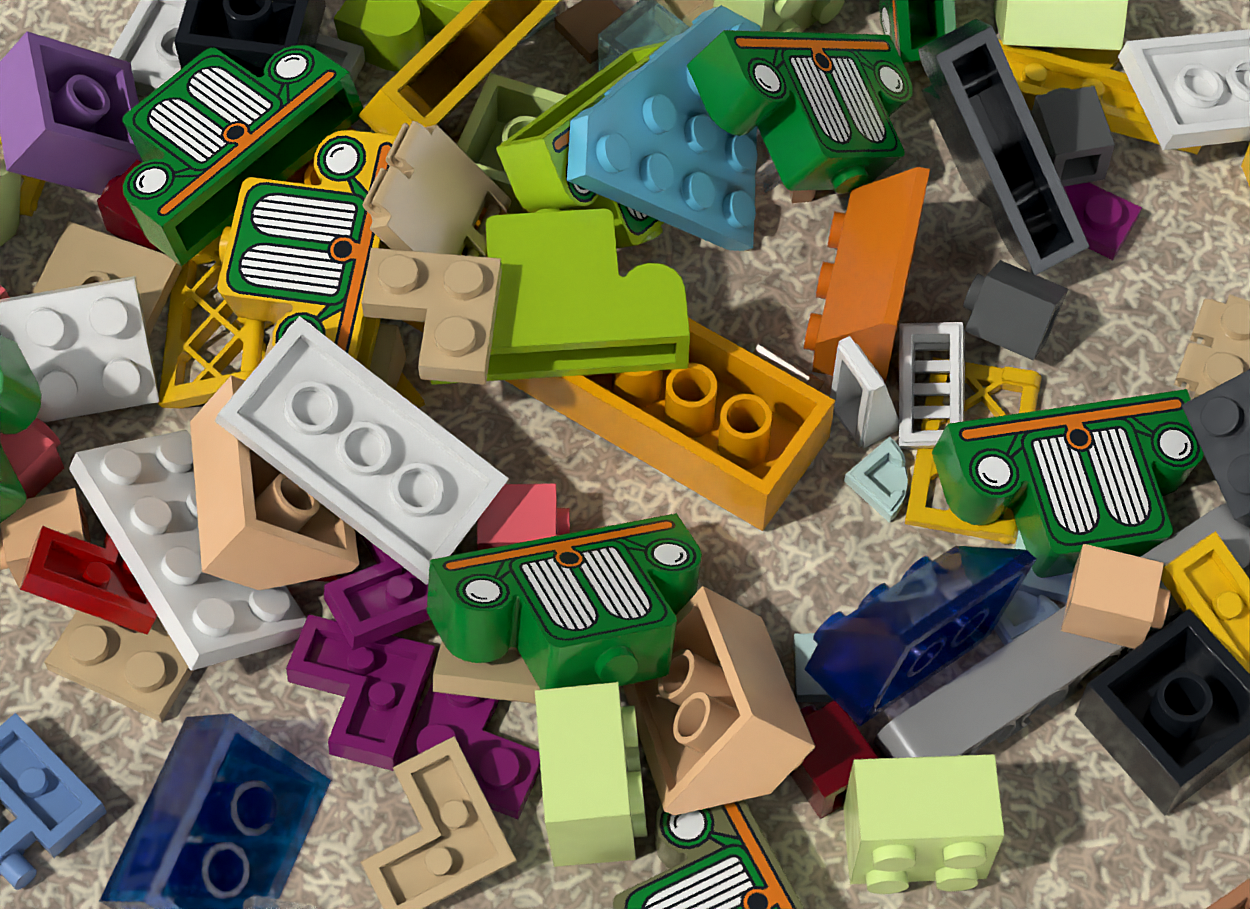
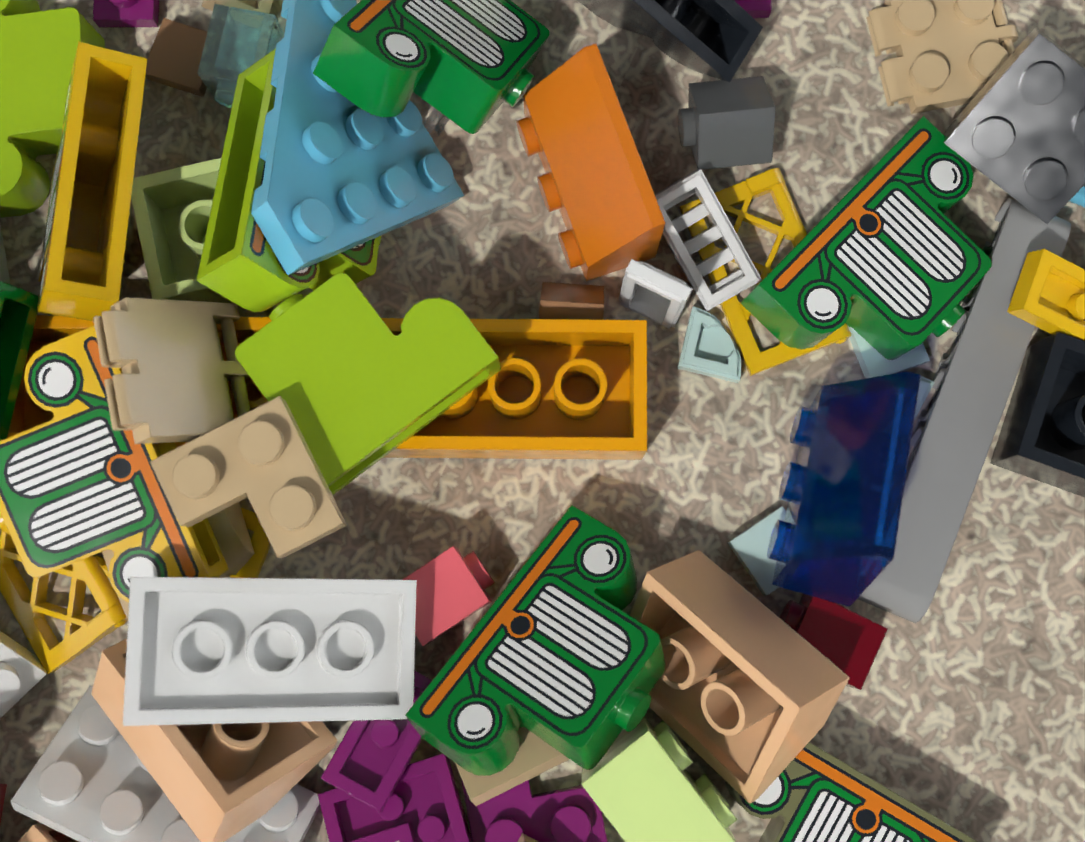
camera: 30 degrees left, 20 degrees up
(922, 821) = (958, 662): yellowish green brick -> none
(1115, 597) = (992, 359): light nougat brick -> none

